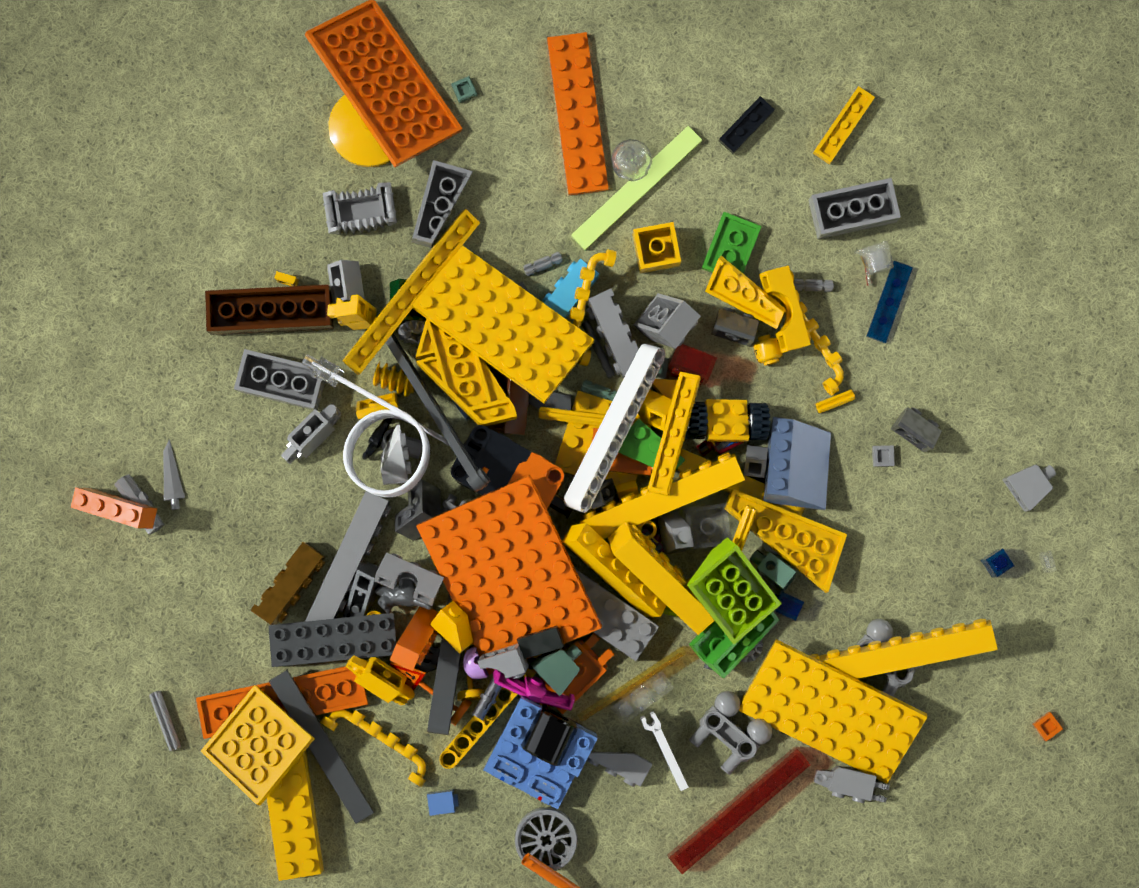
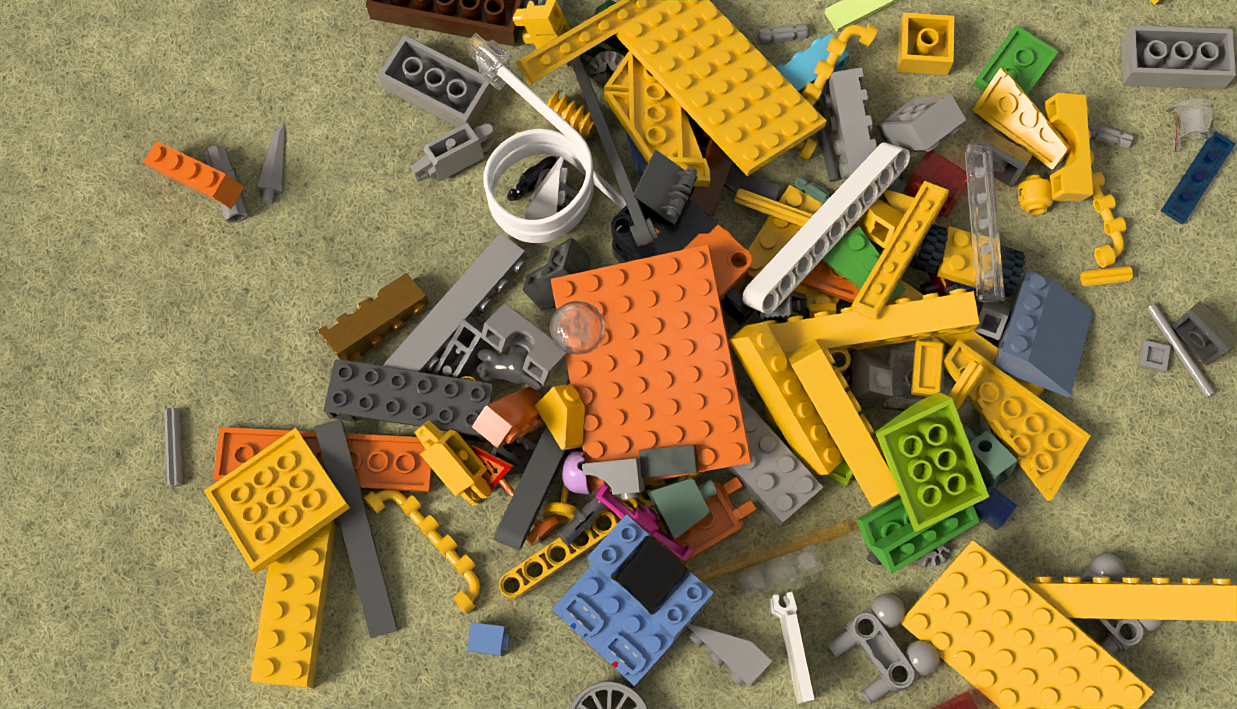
camera: 20 degrees right, 10 degrees down
(447, 560) = (577, 327): none -> clear cylinder
(484, 436) = (665, 186): none -> dark grey hinge
(715, 517) = (927, 368): none -> yellow tile
(732, 393) = (984, 223): none -> clear tile
(901, 445) = (1180, 350): none -> light grey bar

